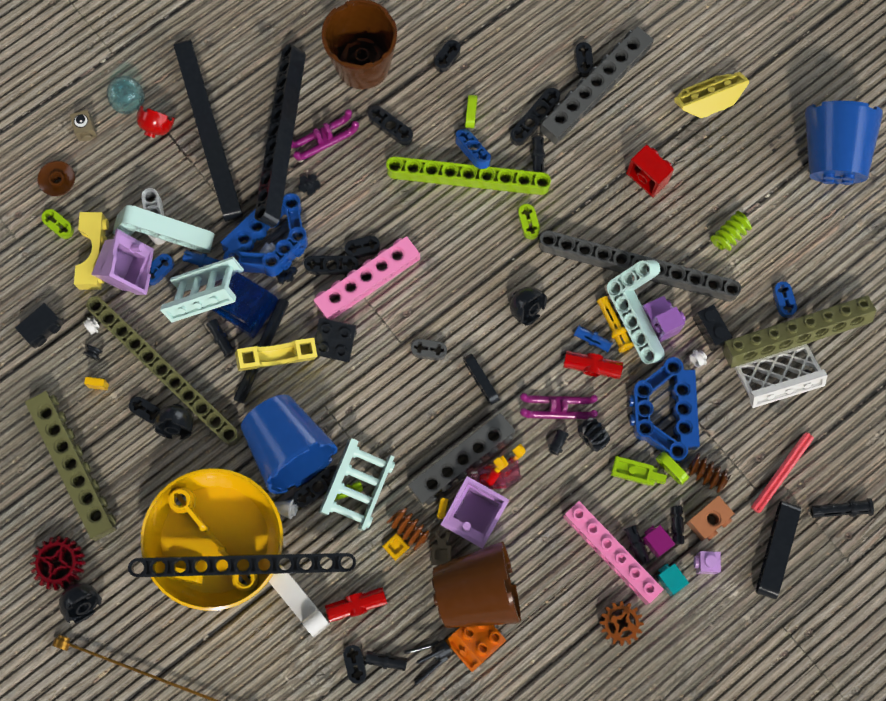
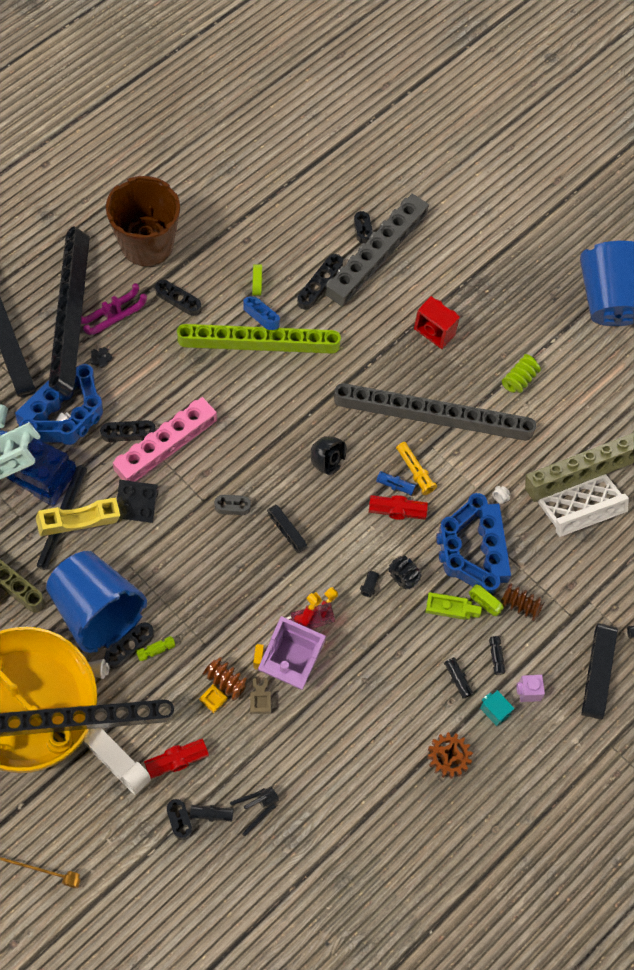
camera: 10 degrees left, 10 degrees down
(220, 338) = (19, 507): black pin -> none
(287, 275) = (83, 442): black plant -> none
(345, 469) = (156, 623): light aqua fence -> none
(362, 242) = (158, 411): black beam -> none
(450, 58) = (232, 233): black beam -> none
(475, 644) = (302, 785): orange bracket -> none
(477, 589) = (299, 728): reddish brown cone -> none
(496, 425) = (306, 571): dark grey brick -> none
(532, 220) = (326, 376): lime beam -> none
(538, 154) = (325, 315): black pin -> none
(558, 407) = (366, 550): magenta piece -> none
(613, 553) = (434, 686): bright pink brick -> none
(635, 309) = (434, 451): light aqua beam -> none
(658, 540) = (479, 670): magenta brick -> none
(664, 318) = (463, 459): medium lavender brick -> none
(699, 522) = (532, 635): nougat brick -> none
(712, 94) = (490, 251): light yellow wedge -> none
(712, 327) = (511, 464): black brick -> none
(780, 300) = (583, 433): blue beam -> none
(782, 472) = (595, 597): coral axle -> none

